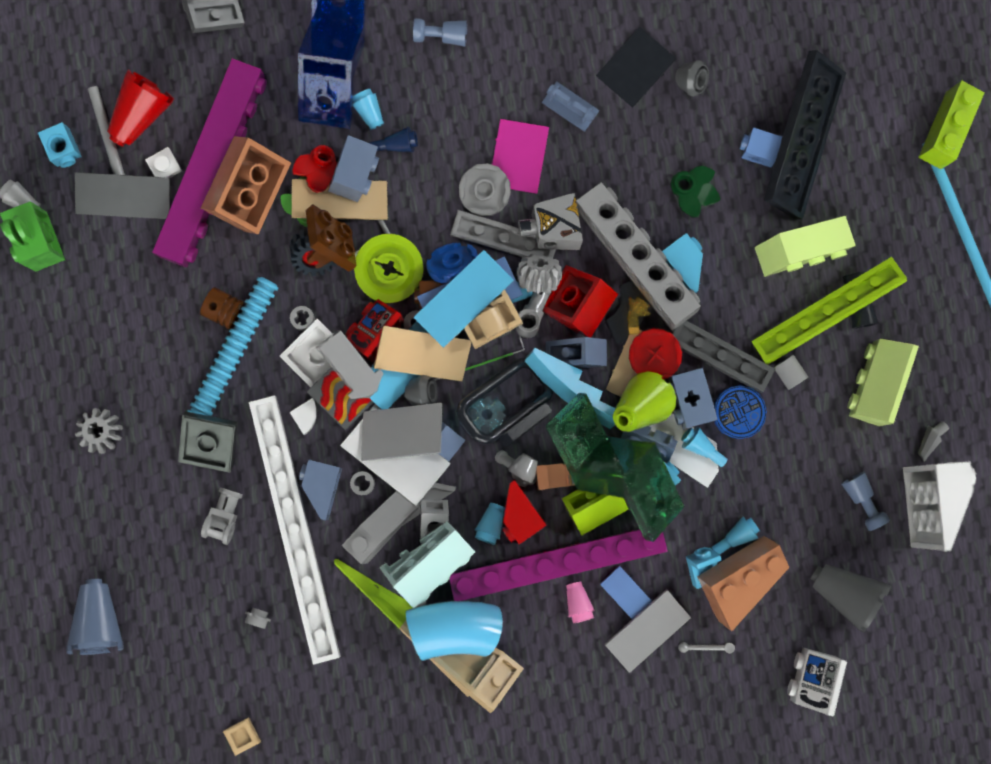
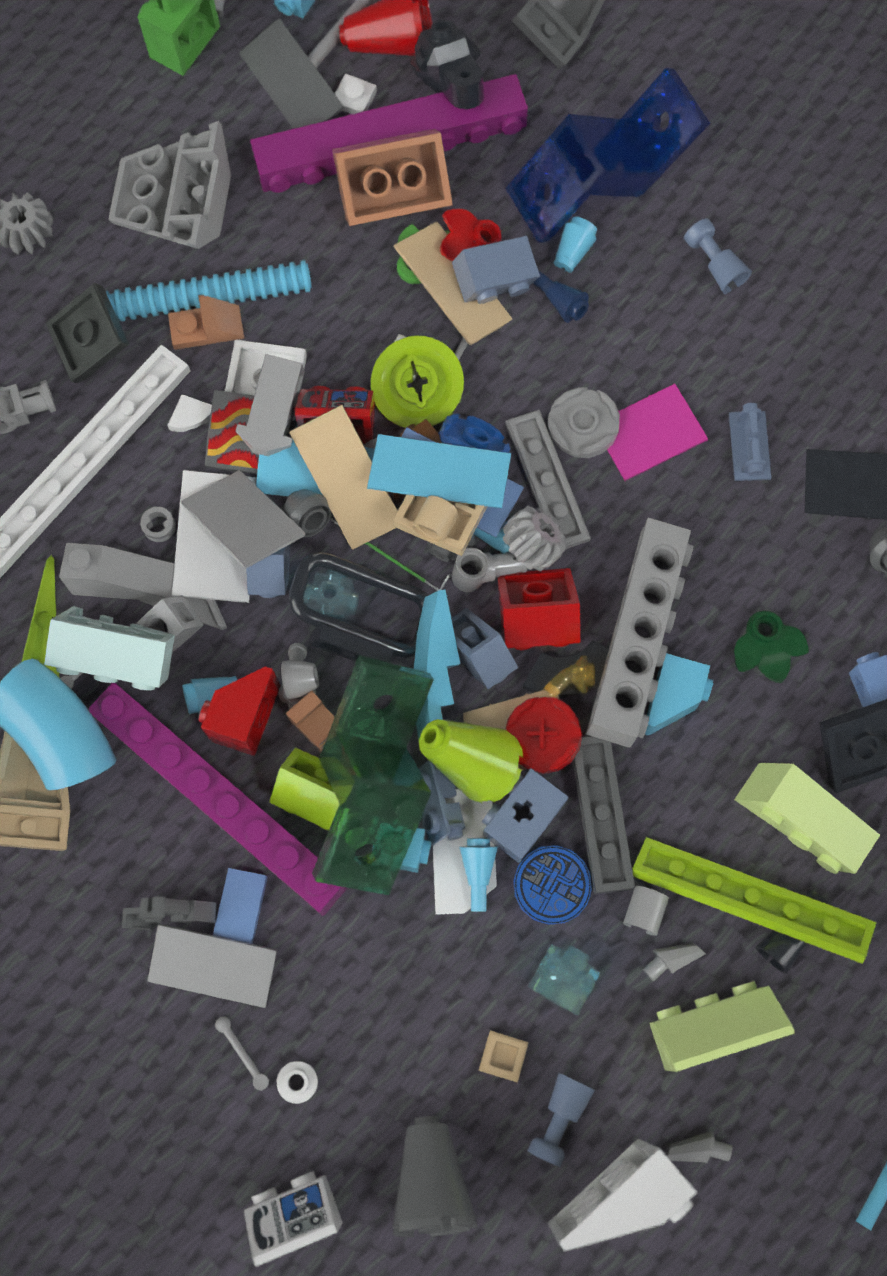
camera: 55 degrees right, 10 degrees down
(148, 322) = (175, 189): none -> light grey wedge
(194, 95) = (448, 64): none -> black piece
(221, 307) = (246, 250): reddish brown piece -> none
(253, 366) = (209, 324): none -> nougat slope
(294, 315) = (293, 327): light grey bush -> none
(320, 485) = (120, 482): sand blue slope -> none
(324, 245) = (389, 293): reddish brown plate -> none
(554, 224) = (603, 516): light grey torso -> none
(578, 603) = (187, 860): bright pink cone -> none
(601, 637) = (155, 908): none -> dark grey piece
(701, 561) = (334, 975): medium azure bracket -> none
(741, 533) = (411, 993): medium azure cone -> none
(743, 580) = (352, 1033): nougat wedge -> none
(752, 632) = (310, 1082): none -> white plate
(796, 443) = (565, 978): none -> clear light blue brick
(810, 507) = (503, 1056): none -> tan tile
(825, 378) = (672, 959): none -> light grey bar

